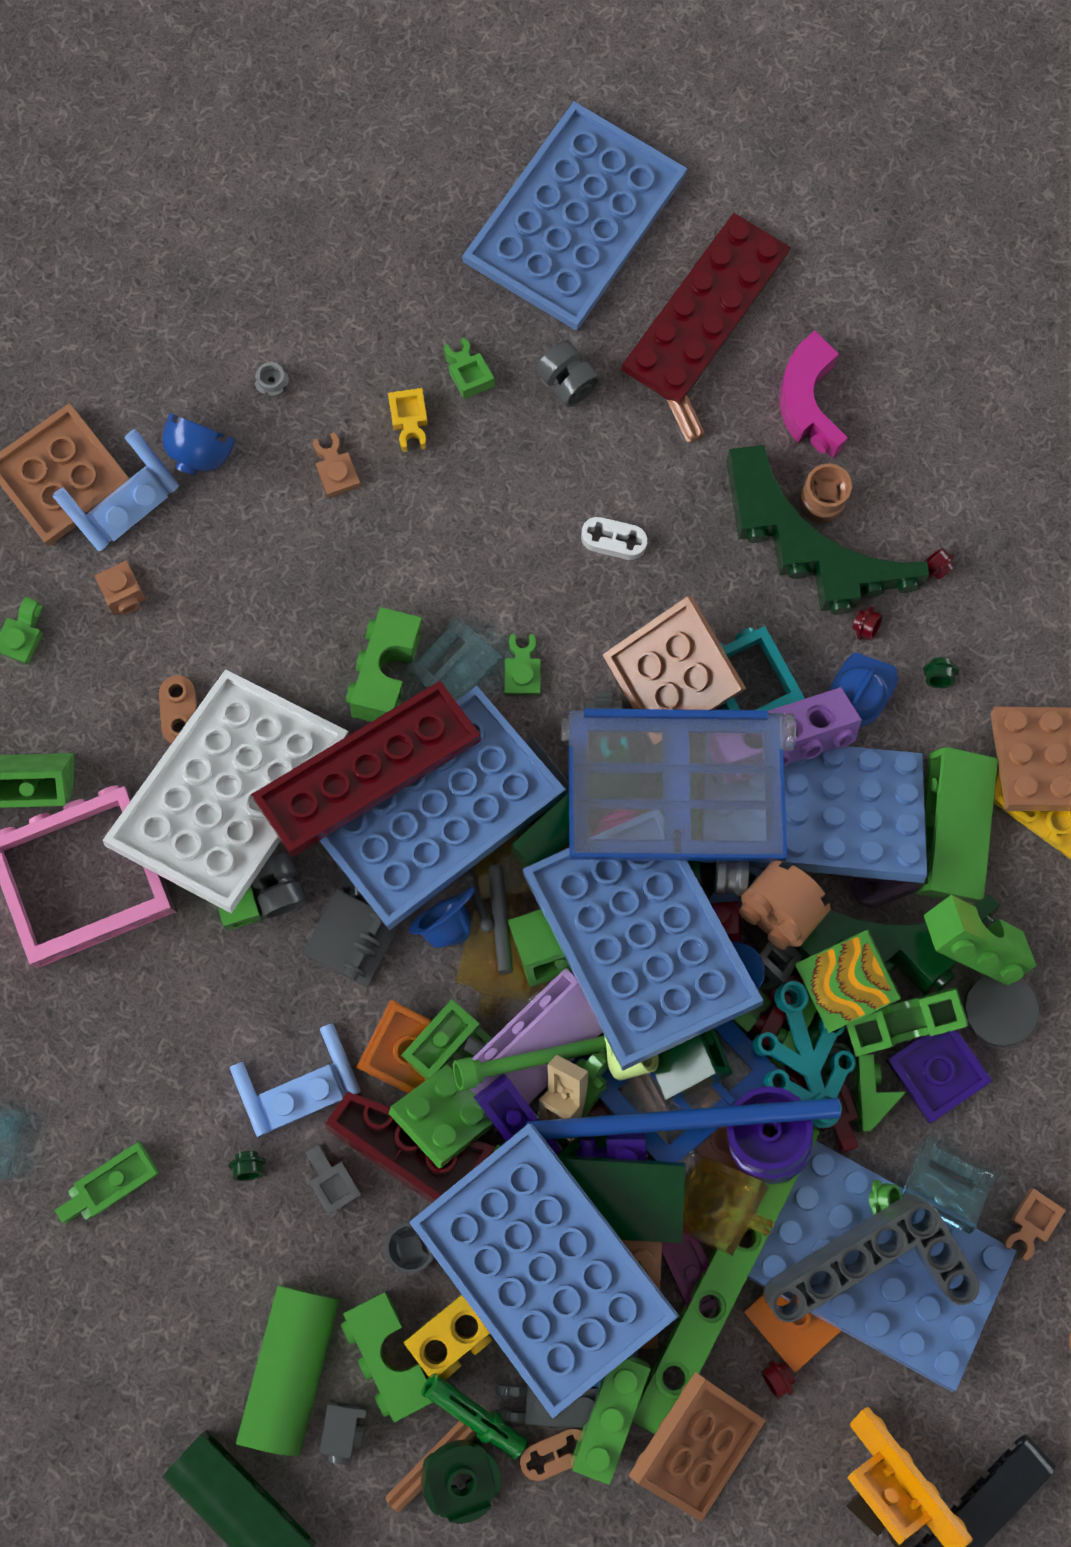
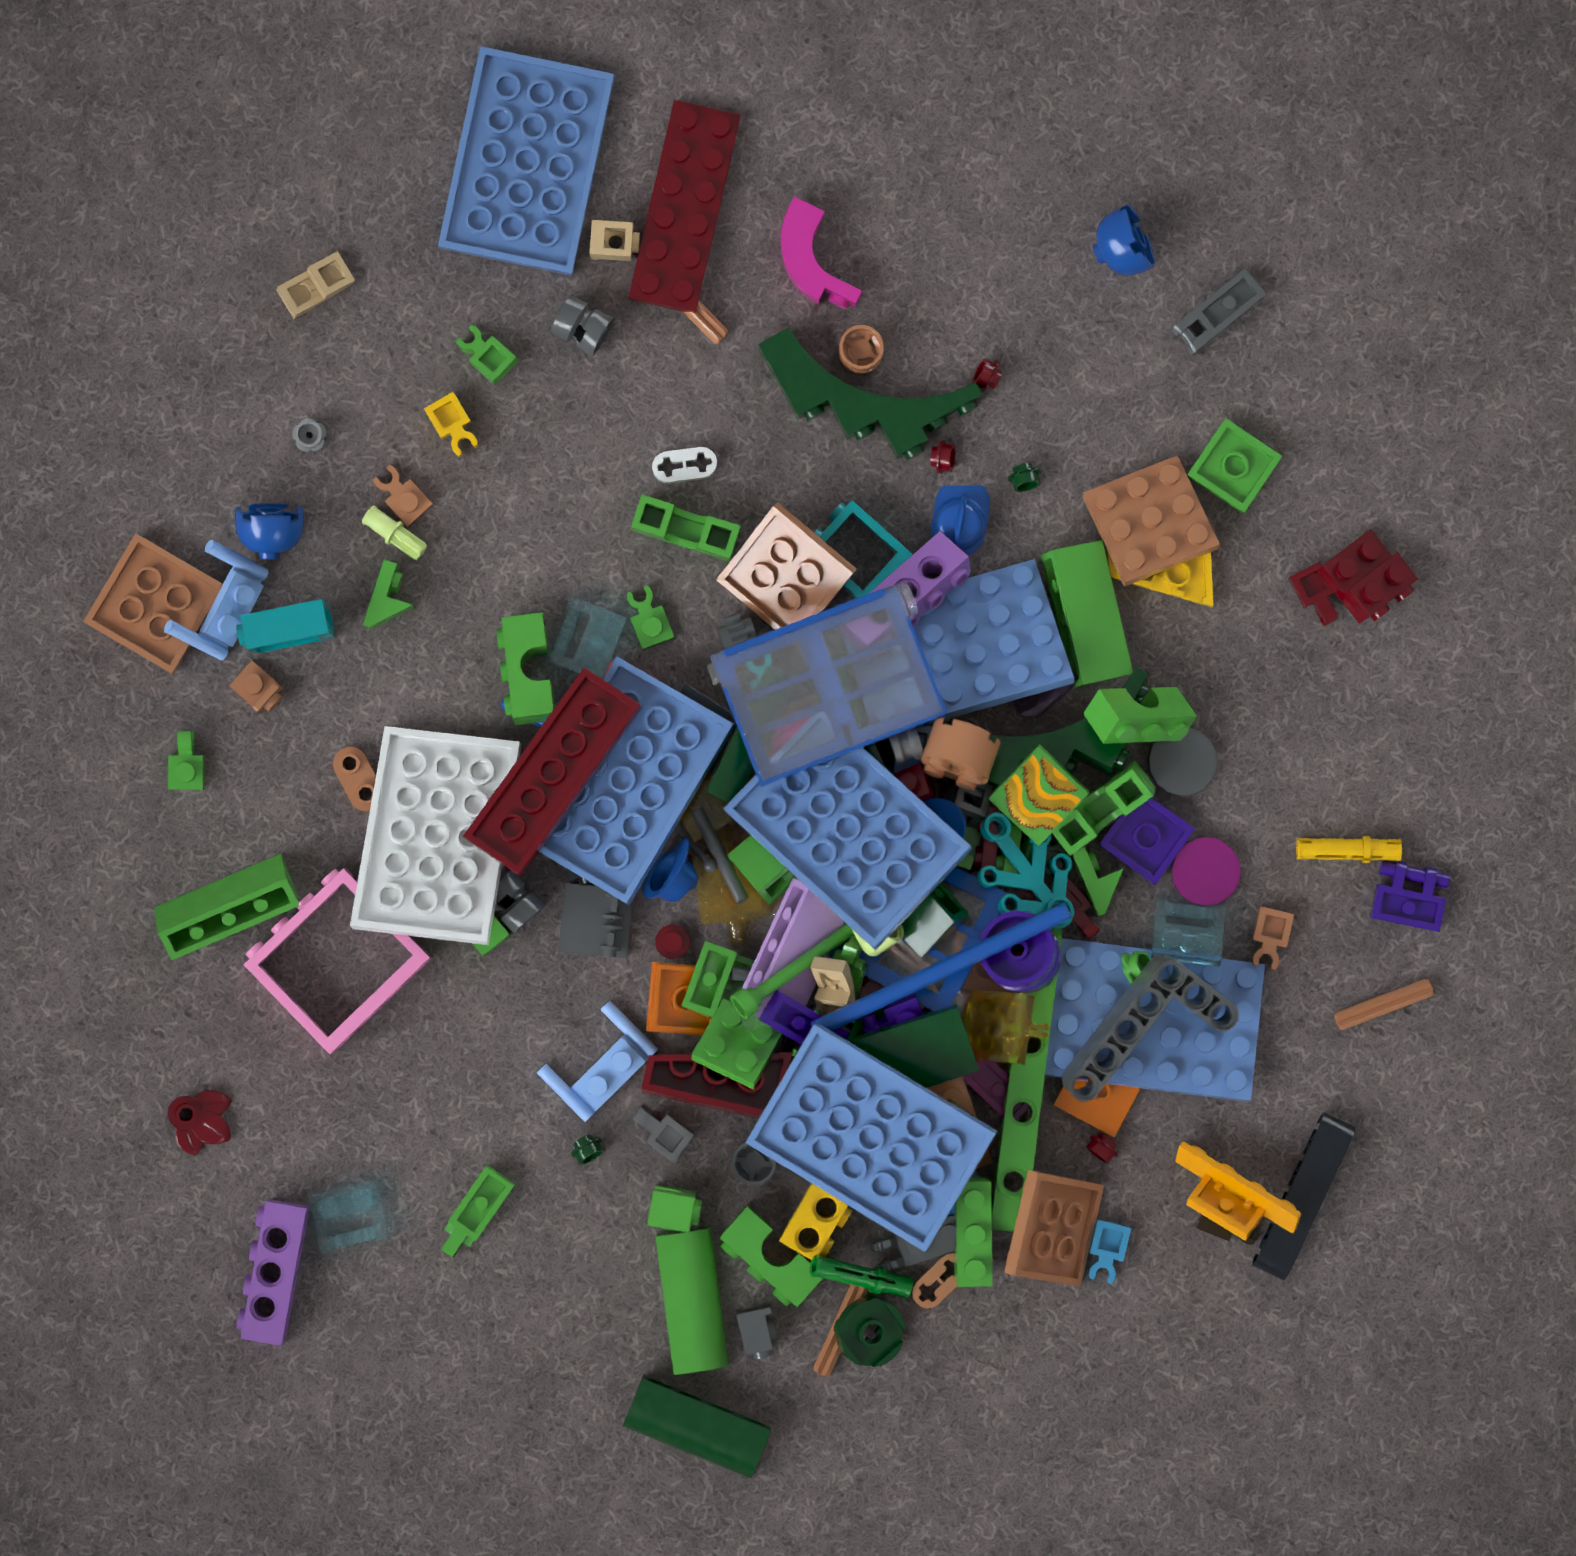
camera: 25 degrees left, 10 degrees up
(170, 537) = (286, 626): none -> teal window
(272, 556) = (381, 606): none -> bright green slope
(306, 1263) = (674, 1208): none -> bright green arch
(312, 495) = (394, 532): none -> yellowish green axle
(341, 251) = (315, 285): none -> tan slope
(418, 988) = (672, 941): none -> dark red plate
(573, 580) = (685, 529): none -> bright green arch
(624, 301) = (604, 231): none -> tan brick
(749, 1488) = (1110, 1244): none -> dark azure plate
(987, 1130) = (1205, 871): none -> magenta tile

